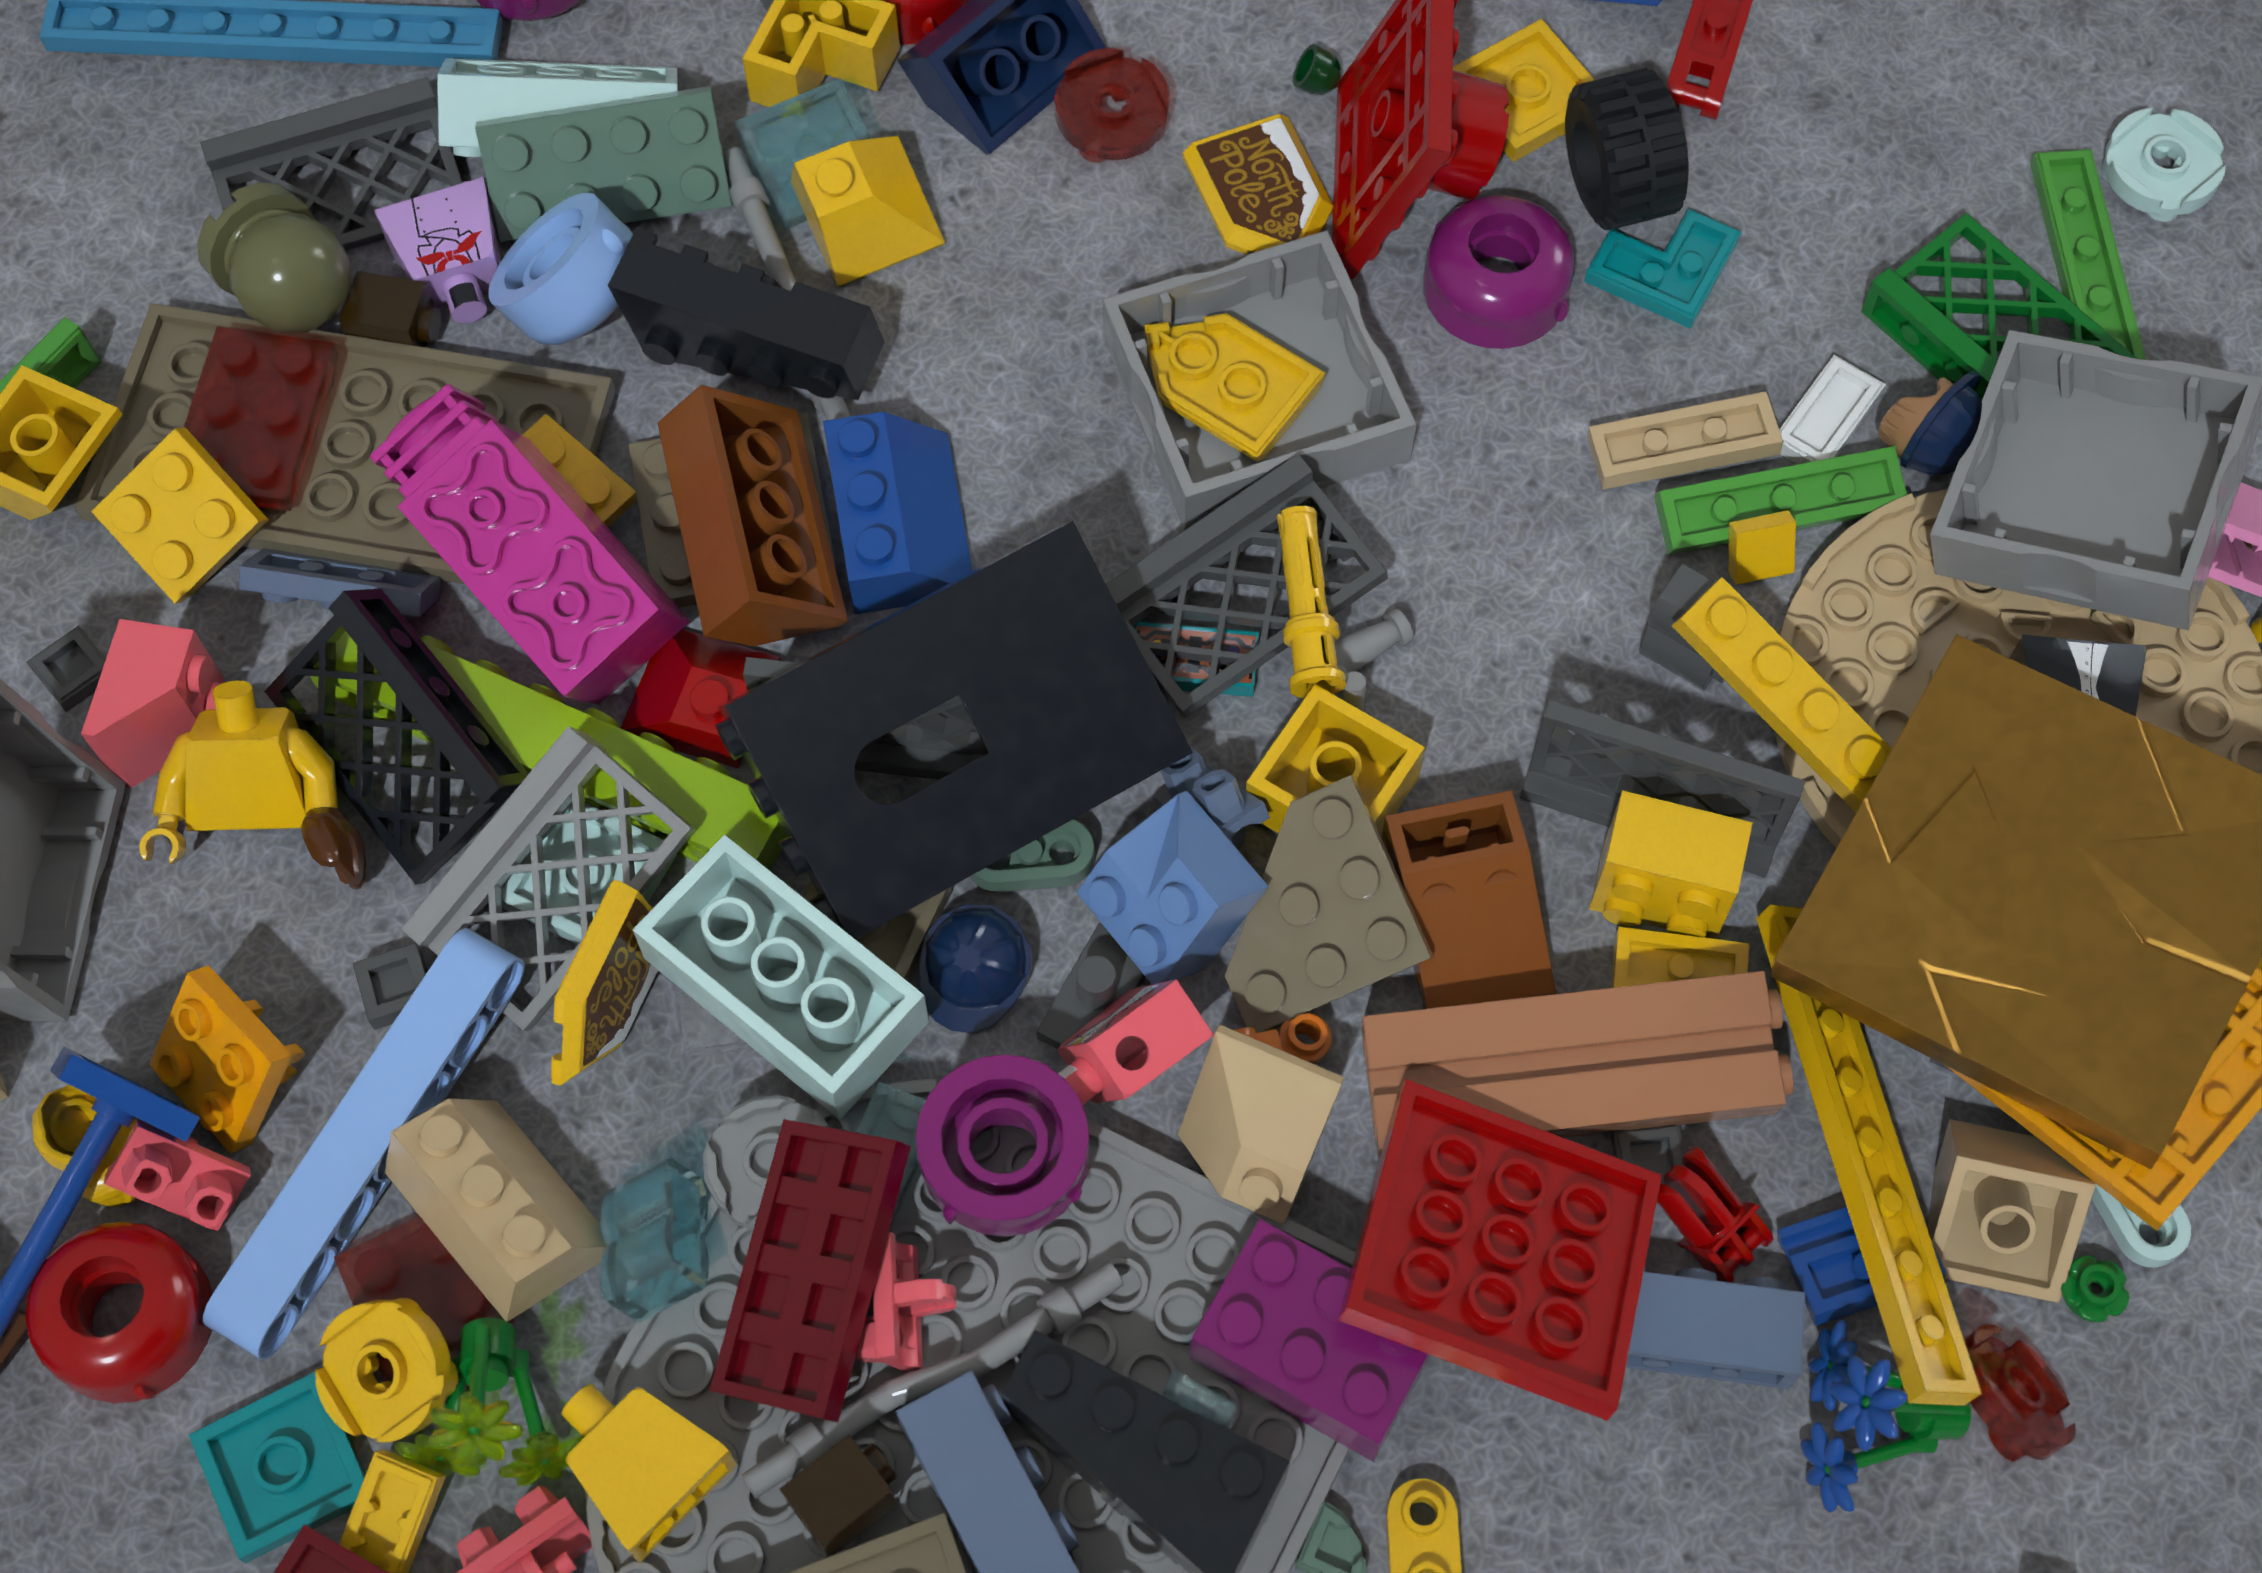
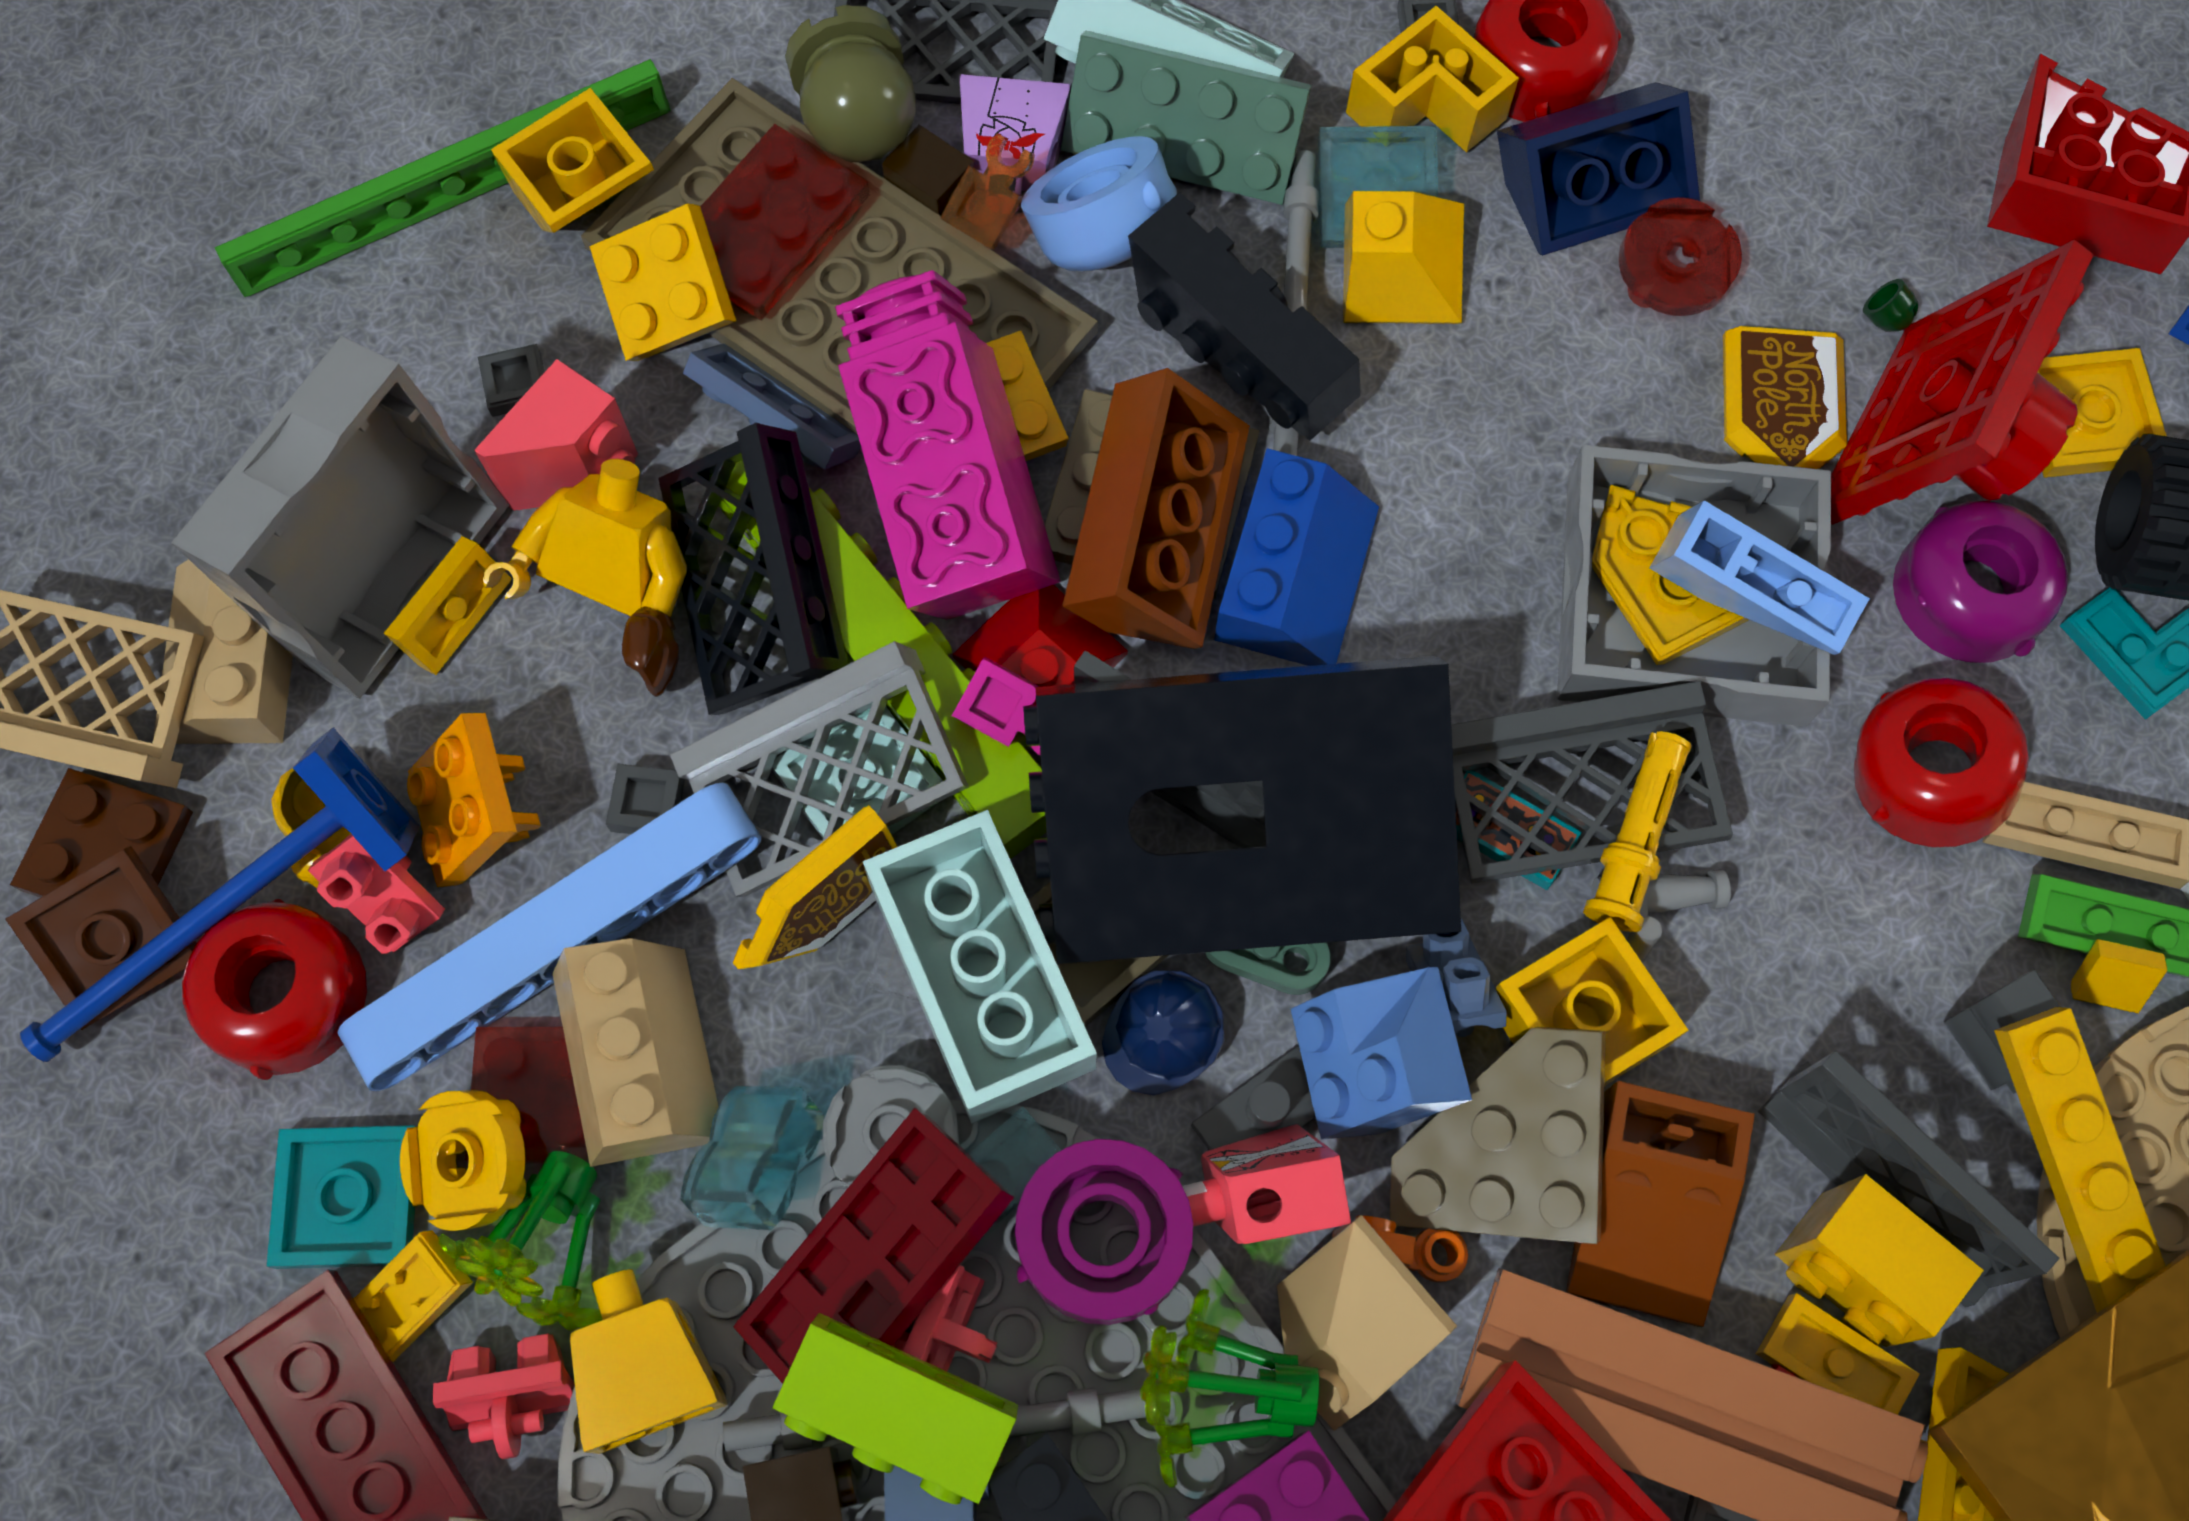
camera: 25 degrees right, 5 degrees up
(113, 898) = (446, 607): none -> yellow plate
(454, 315) = (984, 201): none -> clear orange plate
(689, 744) = (996, 702): none -> dark pink plate
(893, 1367) = (895, 1410): none -> lime brick
(1220, 1197) = (1284, 1393): none -> plant
(1305, 347) = (1757, 578): none -> light blue slope
(1540, 473) = (1931, 805): none -> red piece

